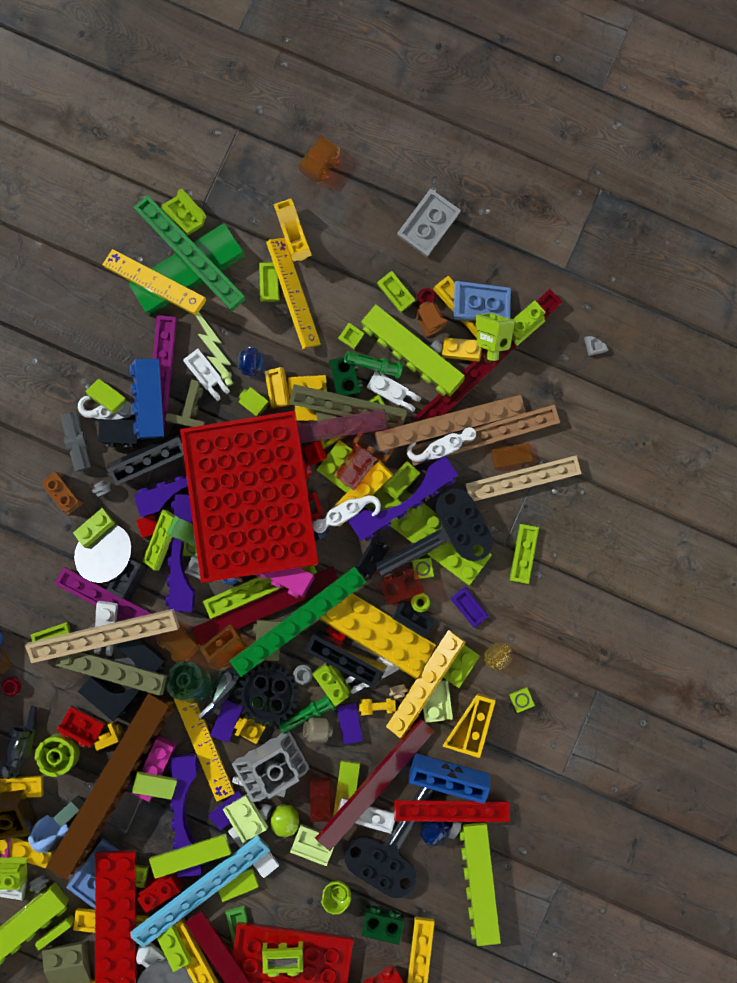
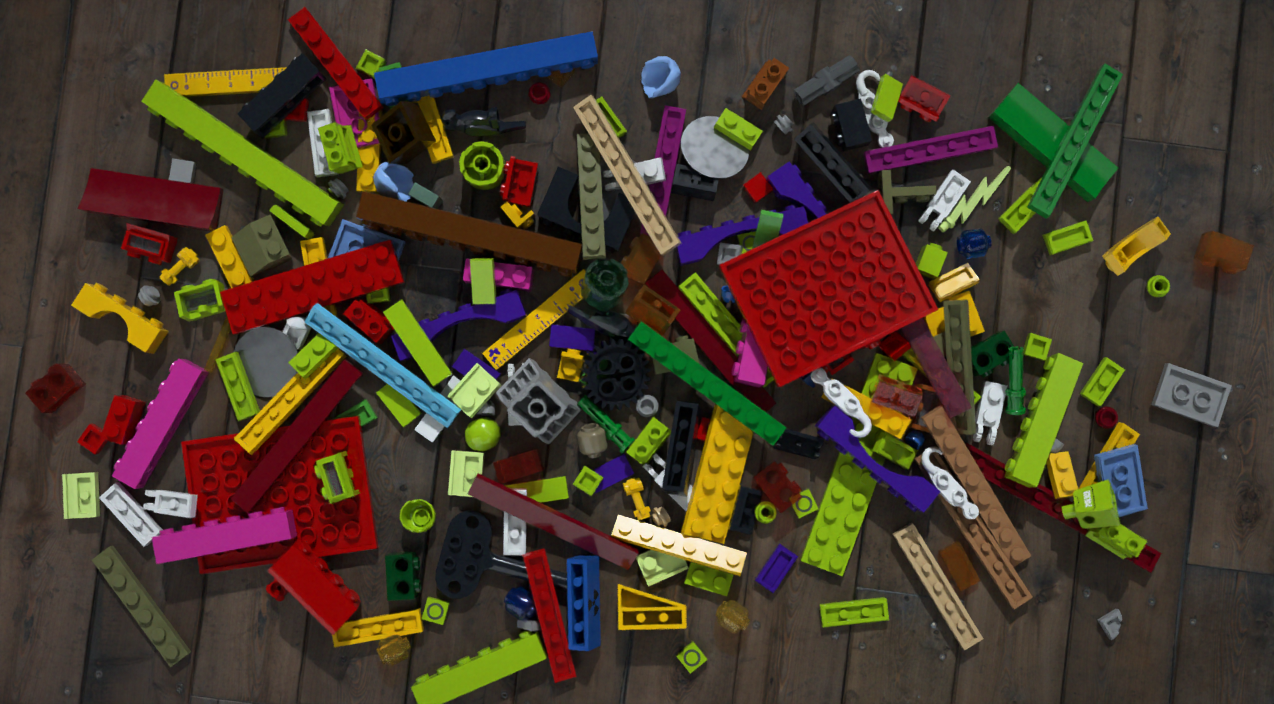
camera: 75 degrees right, 0 degrees up
(28, 580) = (660, 76): none -> light blue hair
(115, 366) = (923, 99): none -> red bracket
(147, 399) = (900, 144): blue brick -> none
(154, 282) = (1030, 112): yellow tile -> none
(159, 542) = (746, 205): lime tile -> none
(184, 212) = (1117, 121): lime bracket -> none
(237, 318) = (1018, 212): none -> lime hinge
(293, 293) = (1065, 268): yellow tile -> none
(328, 216) = (1164, 286): none -> lime plate
(350, 744) = (588, 480): none -> lime tile
(397, 460) = (915, 439): none -> blue hinge
(420, 904) = (435, 610): none -> lime tile
(430, 318) = (1086, 429): dark orange window -> none
(442, 950) = (393, 650): none -> clear yellow head
(460, 526) = (865, 531): black piece -> none

